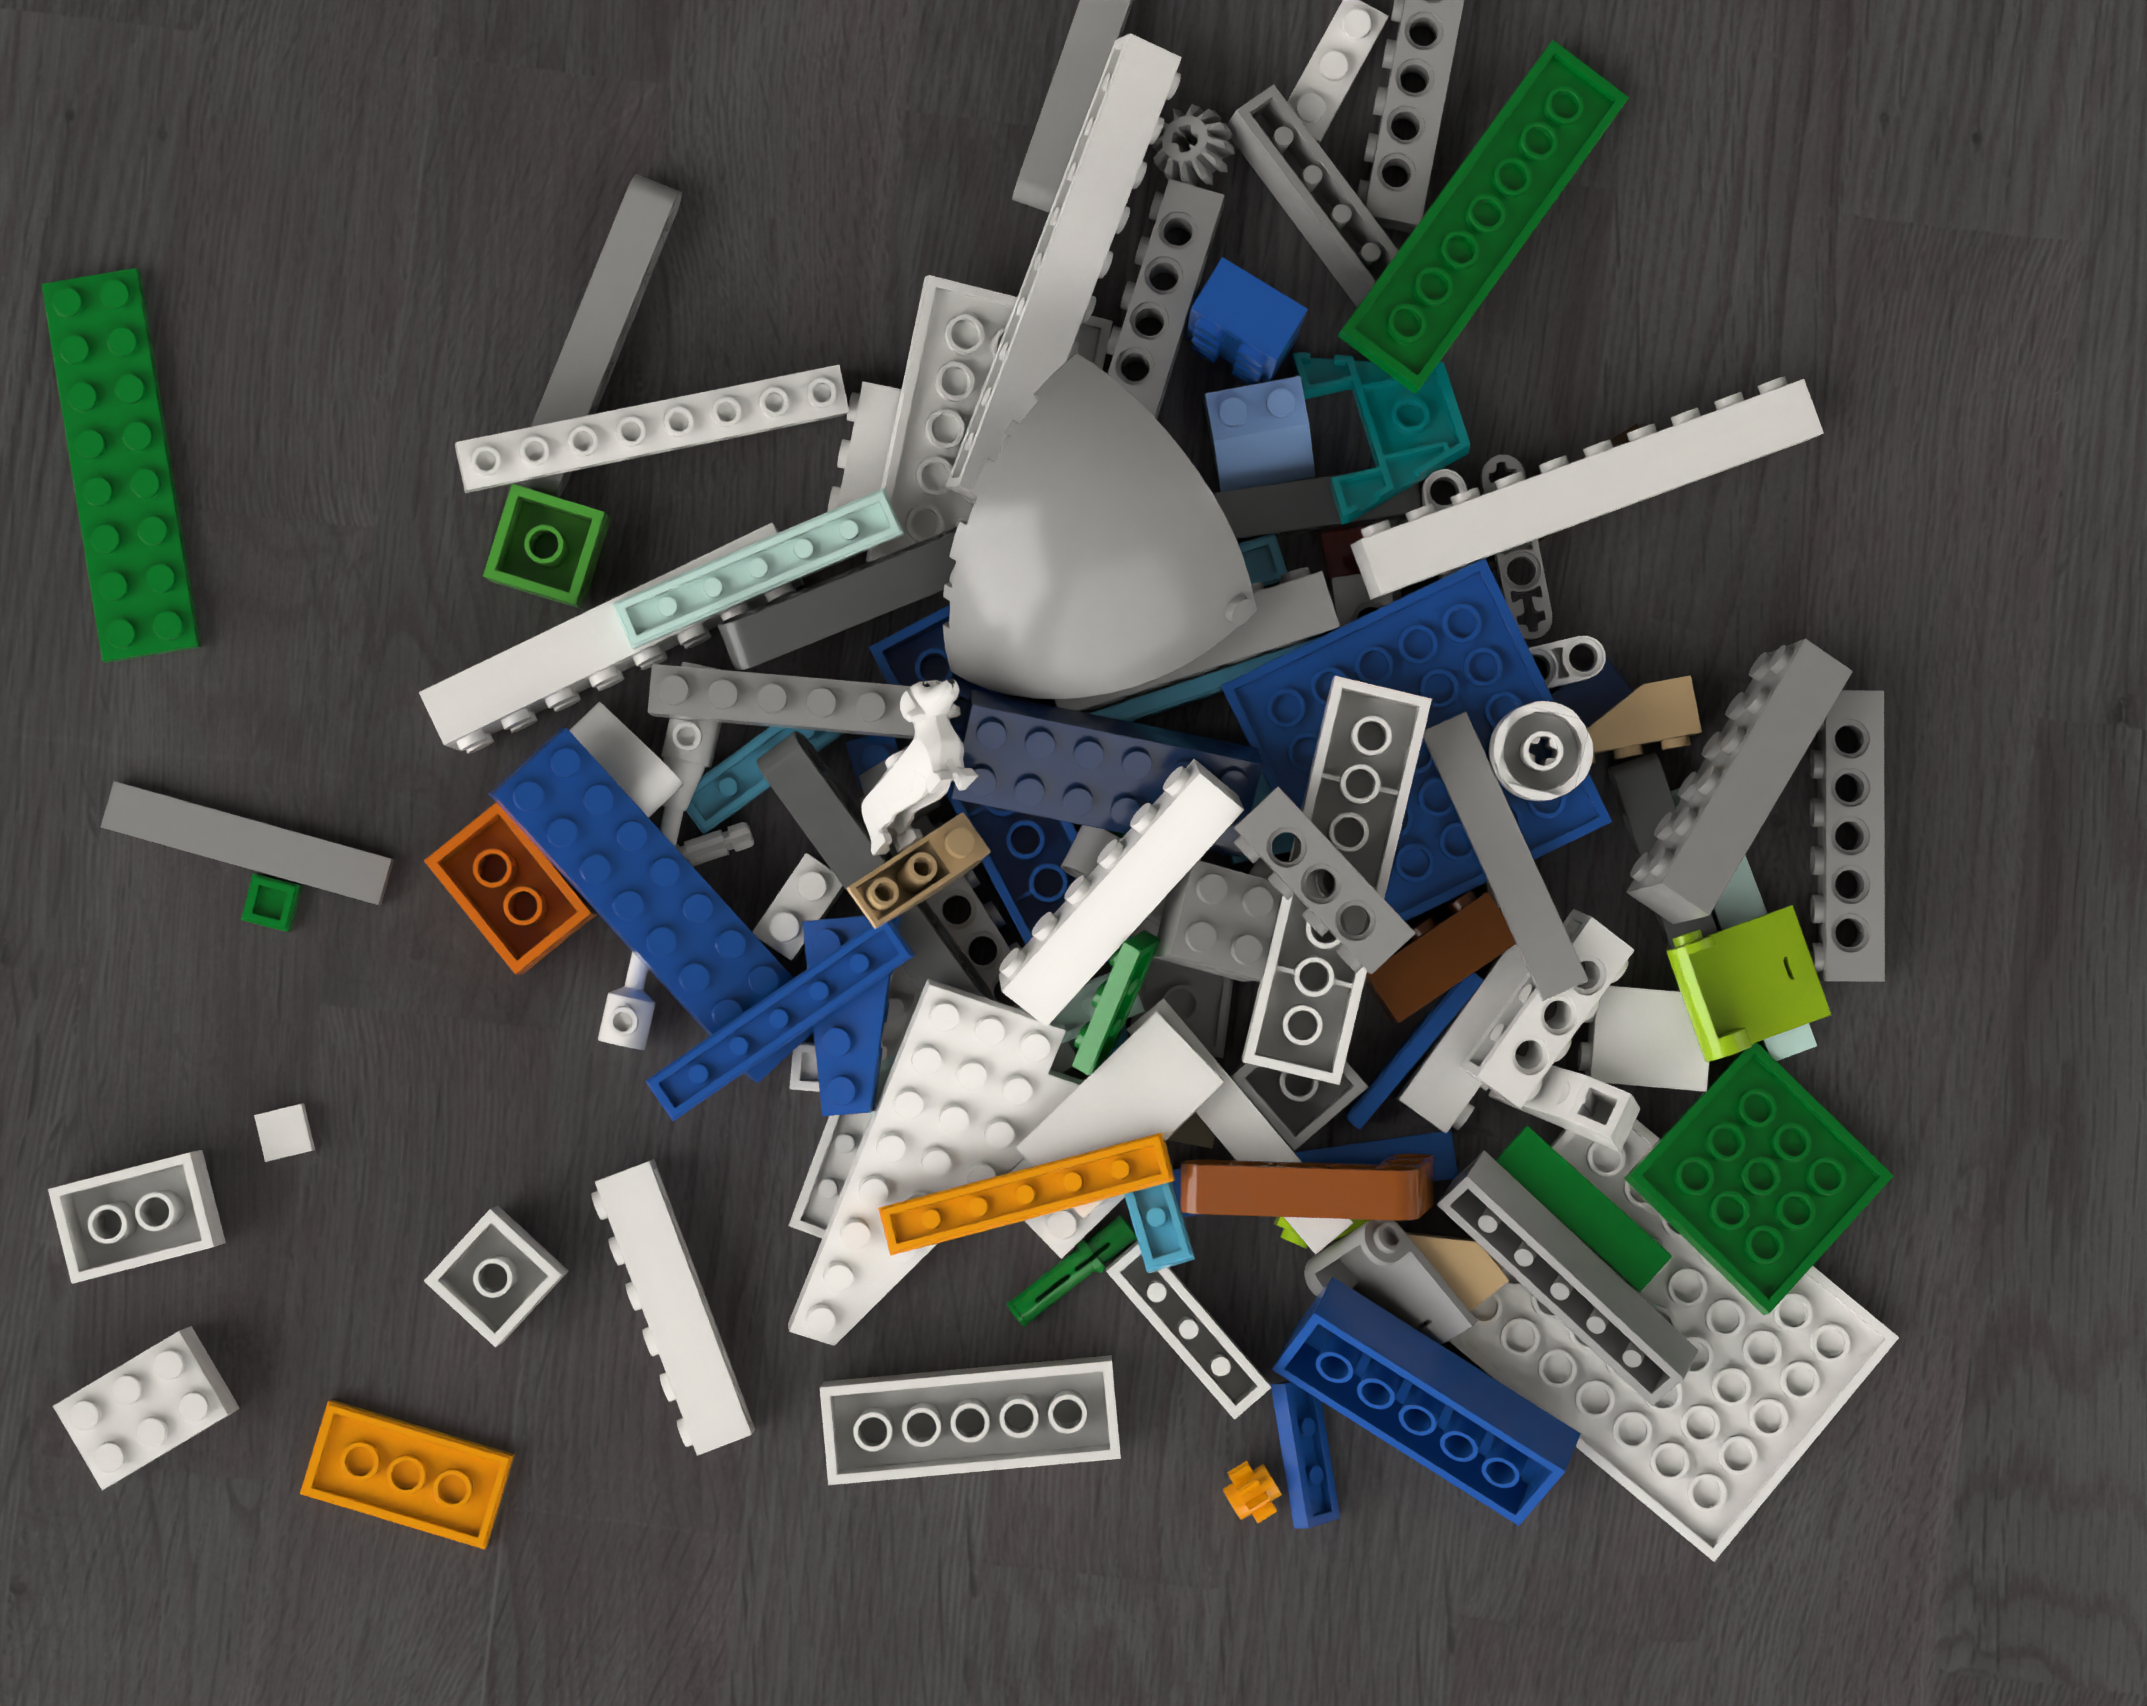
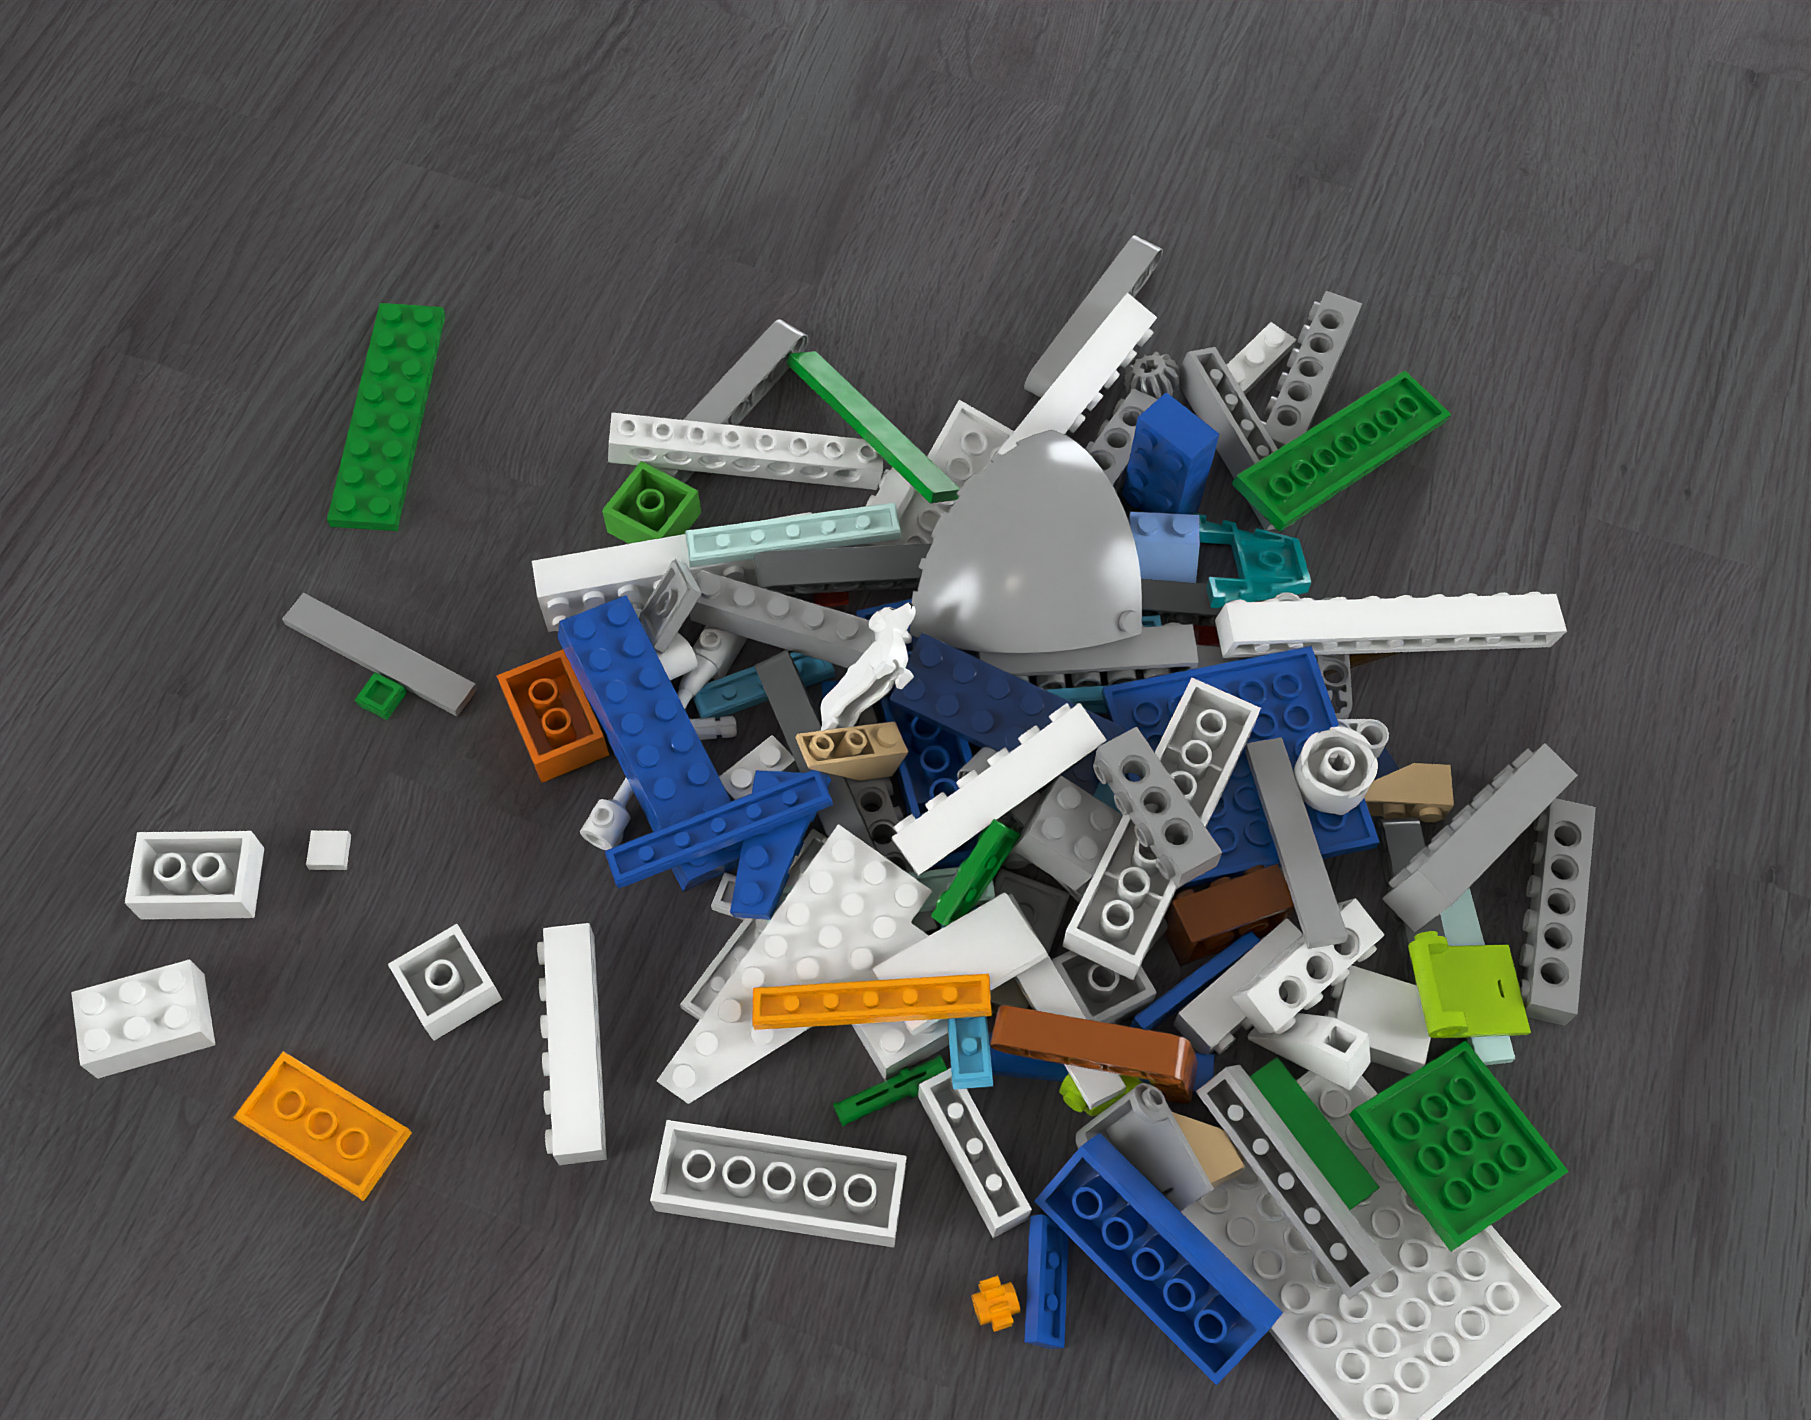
camera: 10 degrees right, 25 degrees down
(625, 719) = (669, 605): none -> light grey tile
(816, 345) = (874, 427): none -> tile

